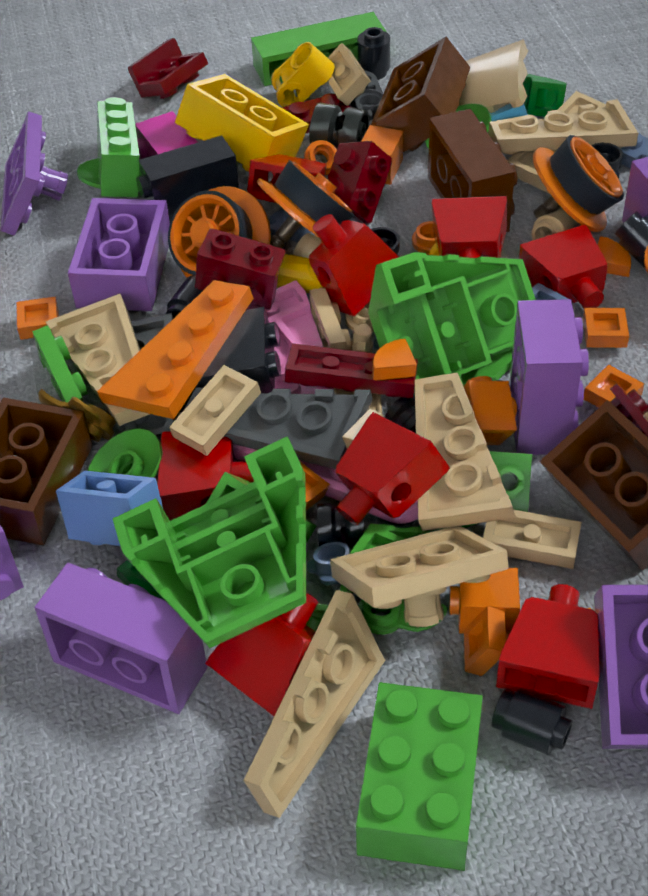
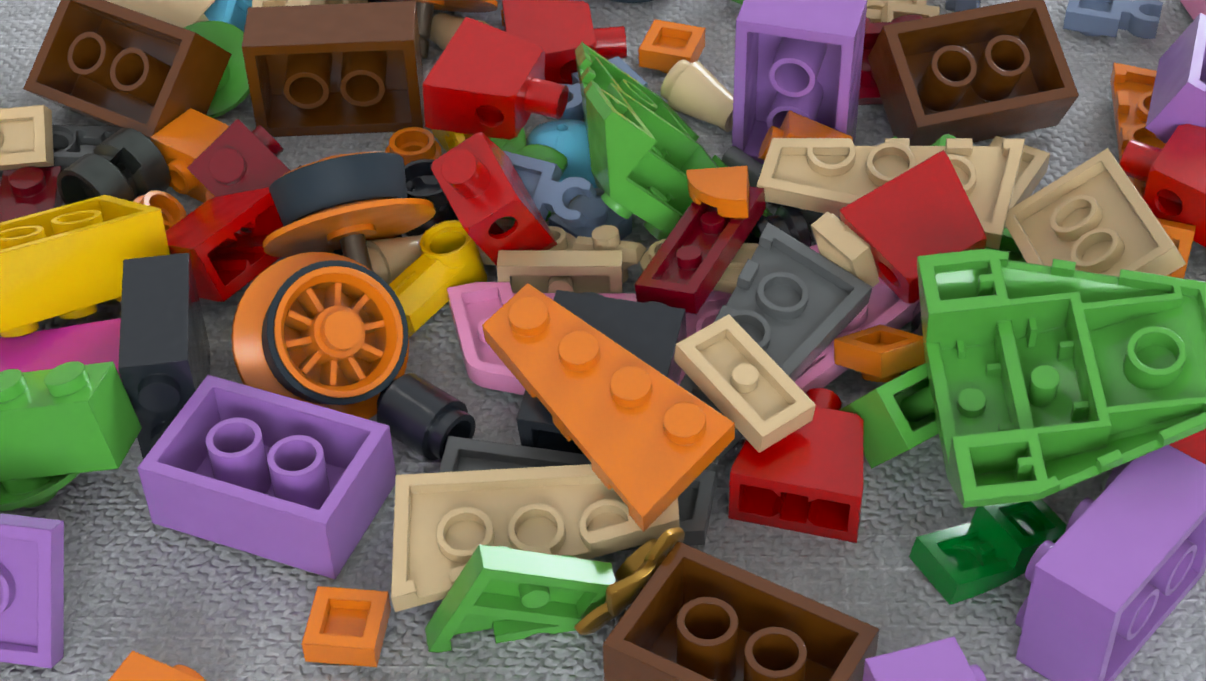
camera: 75 degrees left, 5 degrees down
(97, 497) = (874, 546): medium blue brick -> none
(129, 453) = (771, 512): bright green dish -> none
(240, 262) = (440, 310): dark red bracket -> none

